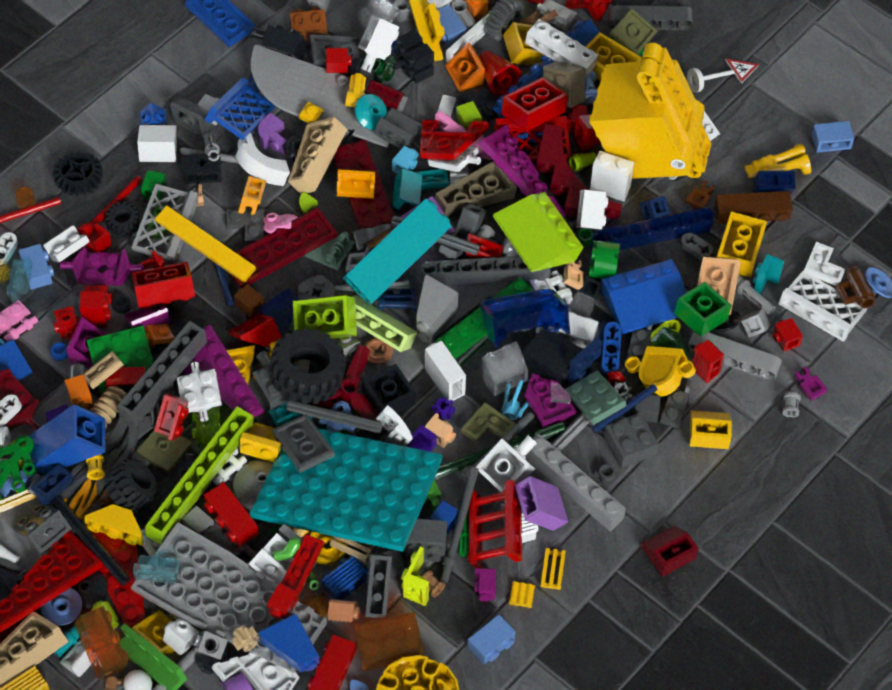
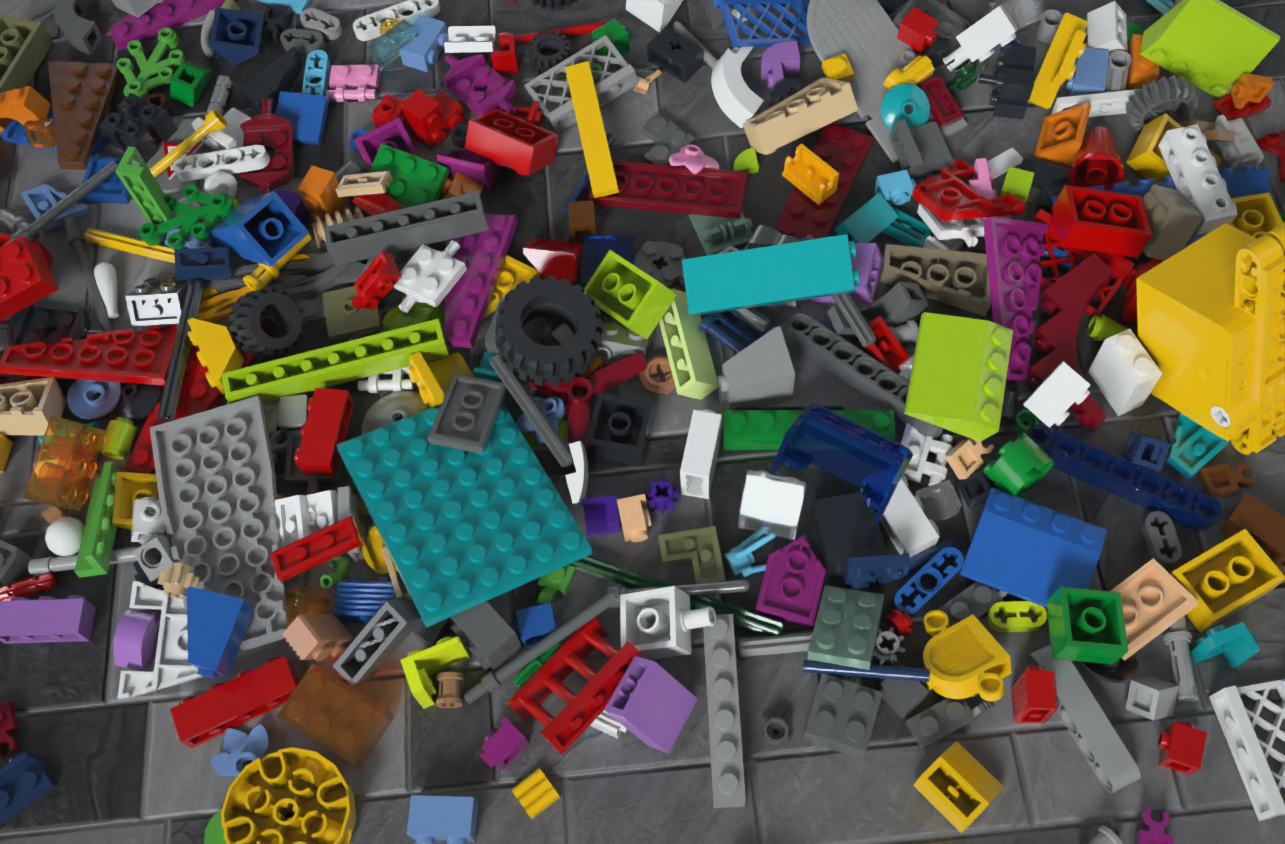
camera: 50 degrees right, 5 degrees up
(156, 569) = (185, 429): clear light blue panel -> none
(215, 148) = (696, 37): light grey pin -> none
(252, 194) = (692, 110): light orange hinge -> none
(282, 602) = (250, 573): red brick -> none
(289, 550) = (322, 519): bright green arm -> none
(555, 554) = (621, 777): yellow tile -> none
(559, 394) = (809, 586): clear tile -> none
(670, 339) = (1011, 633): clear green slope -> none
(673, 189) = (1192, 446): none -> teal wing

